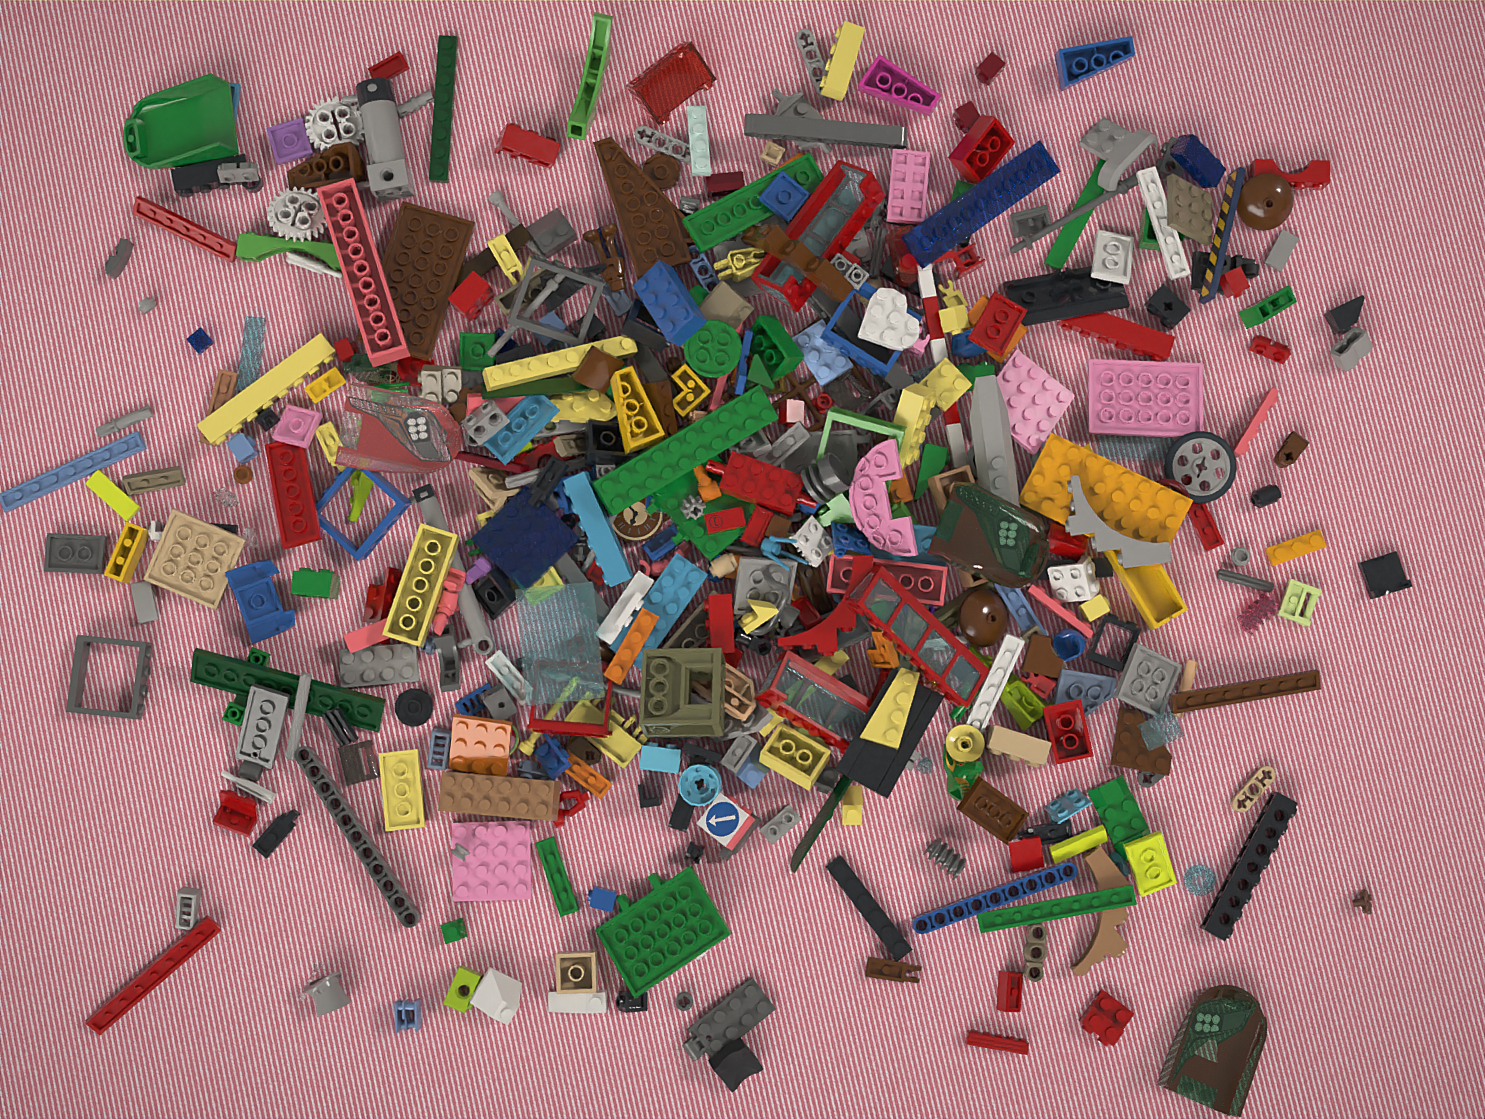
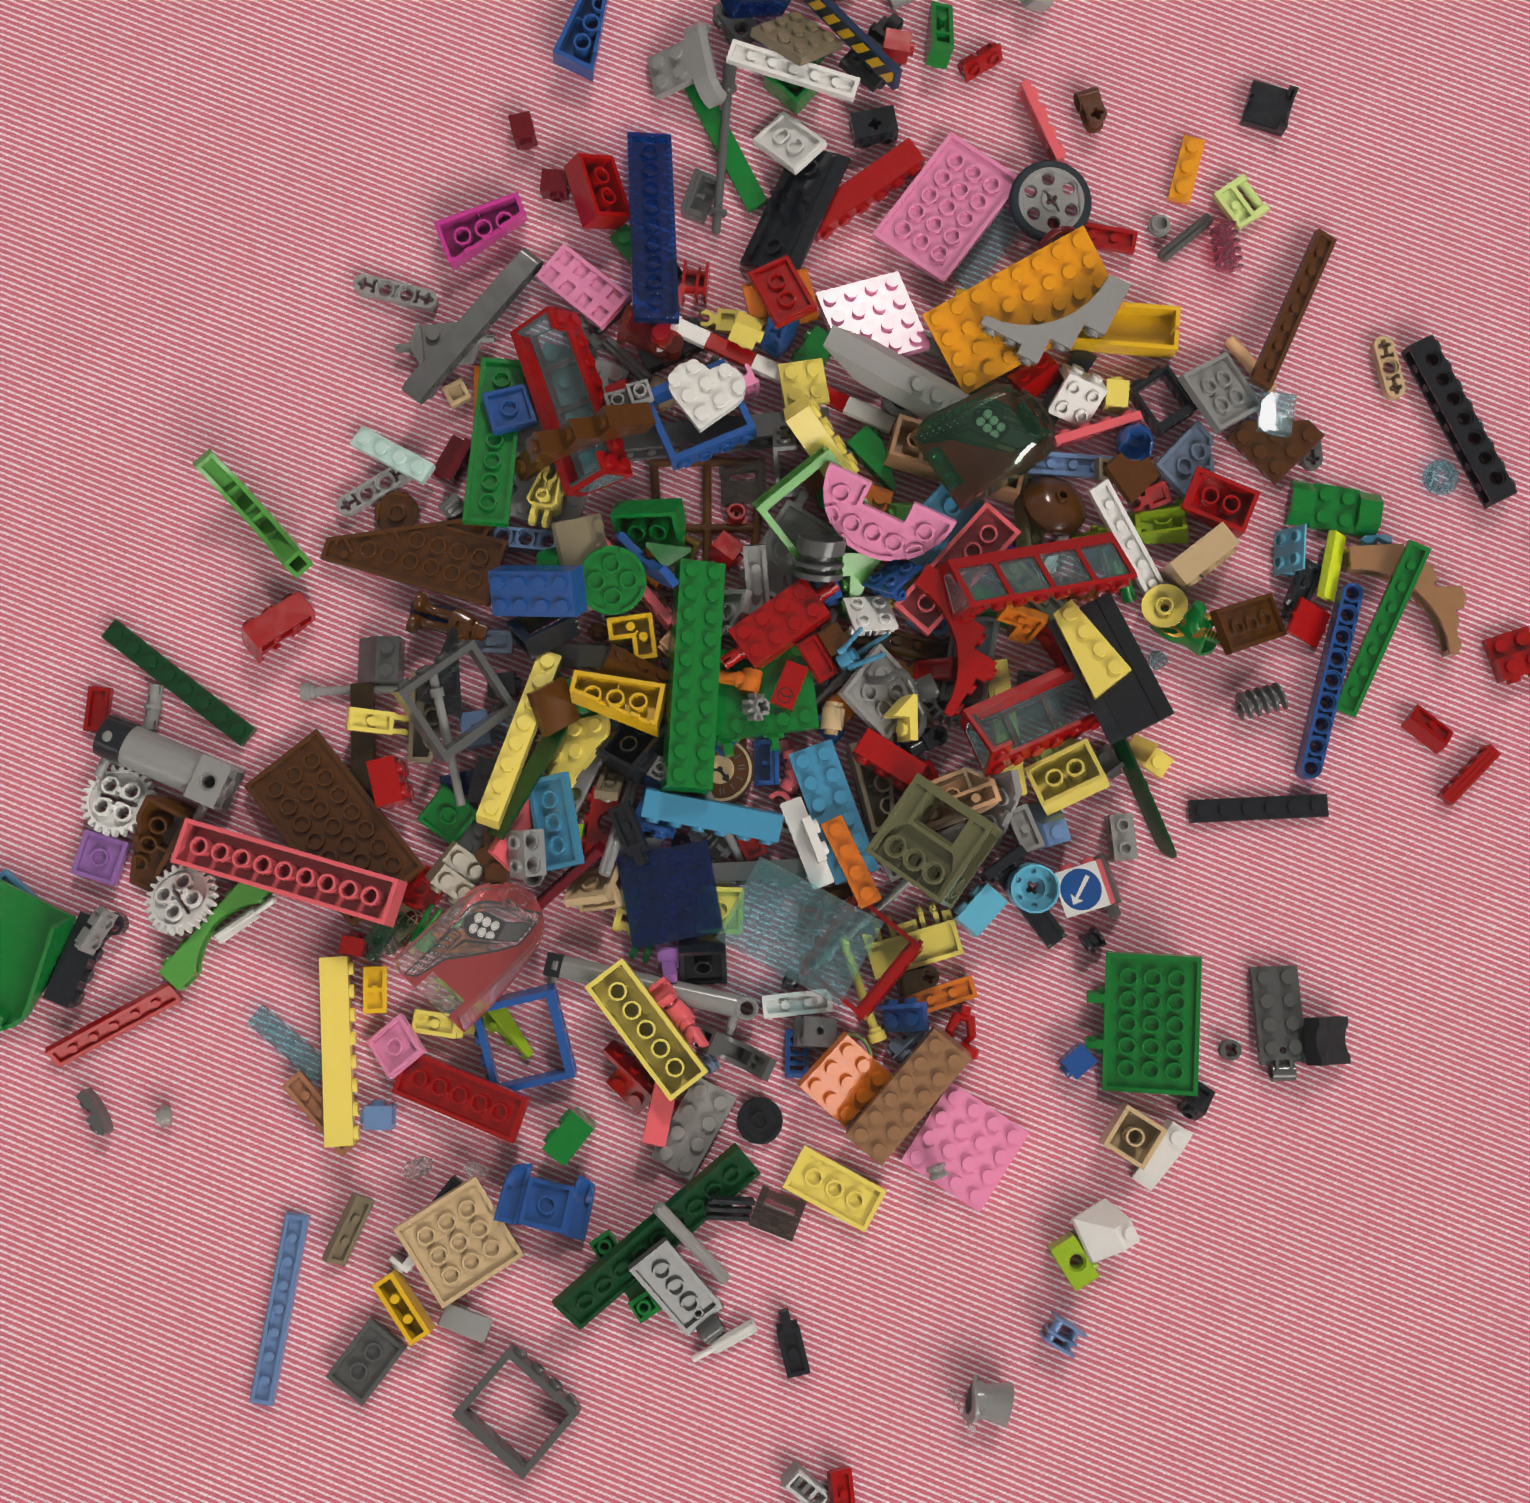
camera: 50 degrees left, 0 degrees up
(113, 495) = (334, 1282): neon yellow tile -> none
(124, 421) = (266, 1219): light grey axle -> none
(200, 340) = (239, 1086): clear blue plate -> none
(236, 813) = (745, 1372): red bracket -> none
(243, 474) = (406, 1134): dark orange plate -> none
(267, 419) = (367, 1071): black bracket -> none
(349, 830) = (860, 1271): dark grey beam -> none
(440, 732) = (804, 1108): sand blue slope -> none
(453, 930) = (1009, 1231): green brick -> none
(557, 876) = (1023, 1091): green tile -> none
(649, 802) = (1014, 949): black panel -> none
(671, 81) = (314, 440): clear red windscreen -> none
(822, 360) = (695, 485): light blue plate -> none
(843, 60) = (414, 262): light yellow brick -> none
(890, 970) = (1332, 828): reddish brown hinge -> none
(920, 374) = (776, 400): clear light blue slope -> none
(1037, 961) = (1417, 683): dark tan piece -> none
(1150, 863) = (1396, 511): neon yellow tile -> none
(1265, 495) = (1118, 162): black brick -> none

